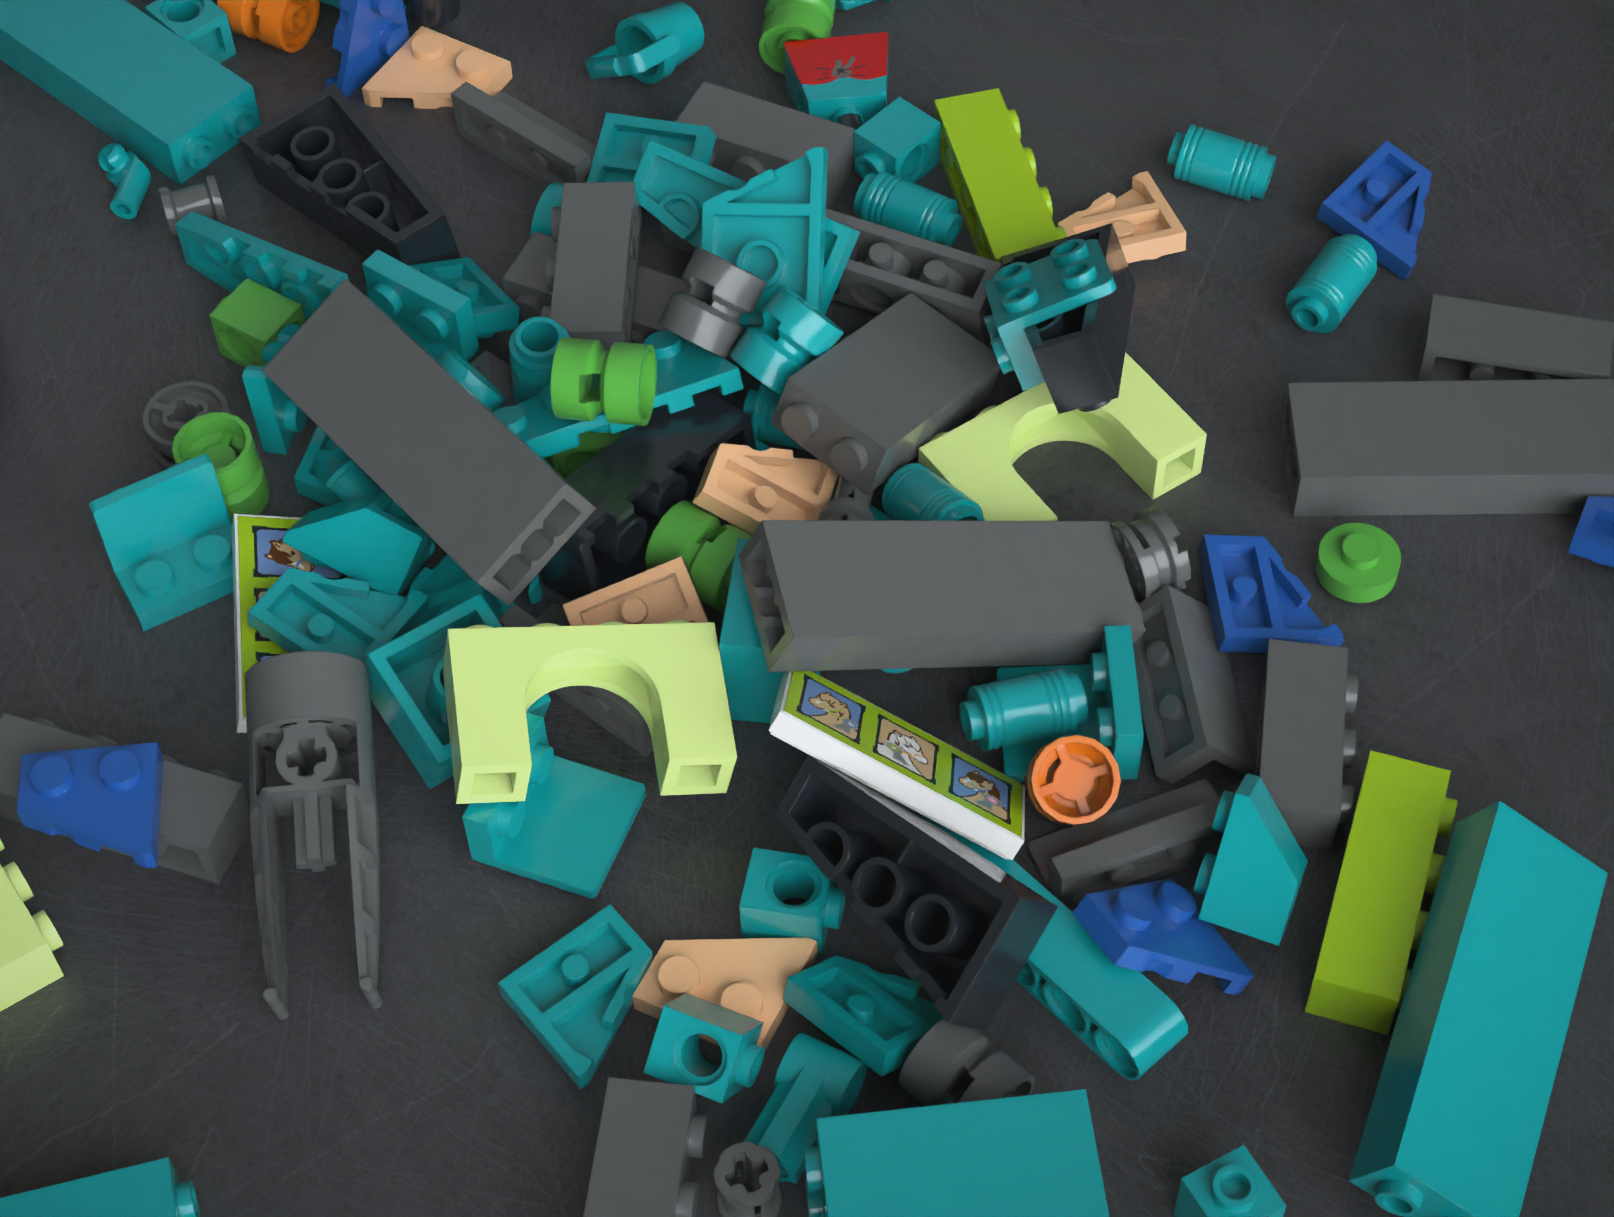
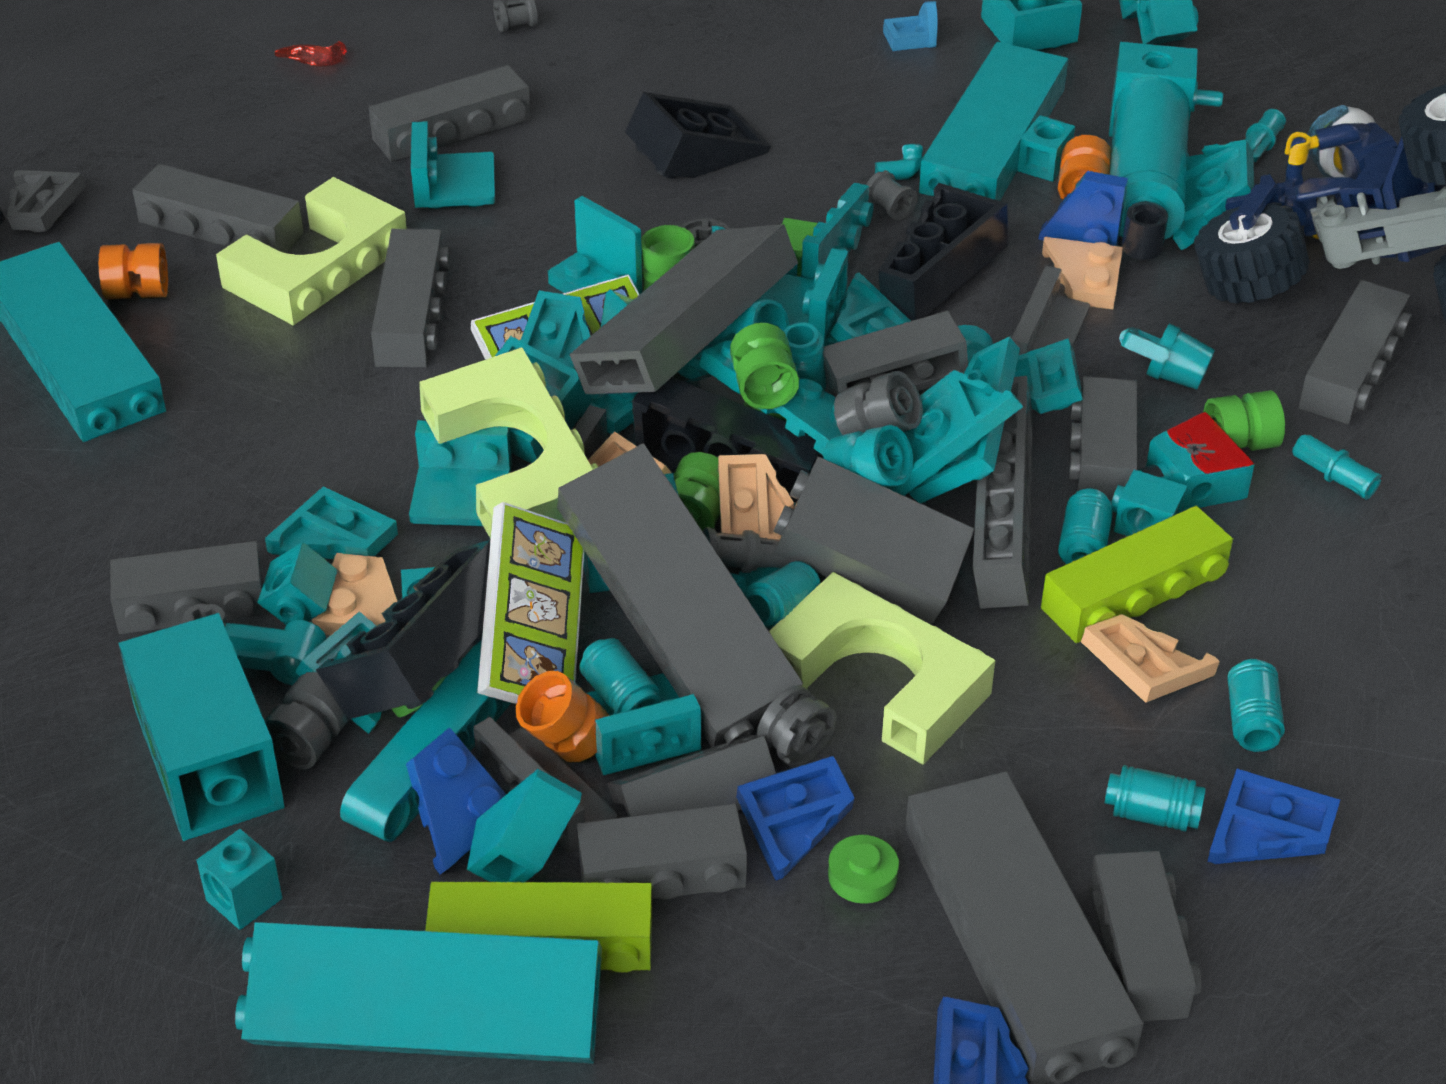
camera: 70 degrees right, 10 degrees down
(96, 797) = (387, 278): blue wing -> none
(299, 714) = (385, 371): dark grey piece -> none
(1038, 291) = (965, 583): teal bracket -> none
(1084, 347) = (981, 613): black wedge -> none

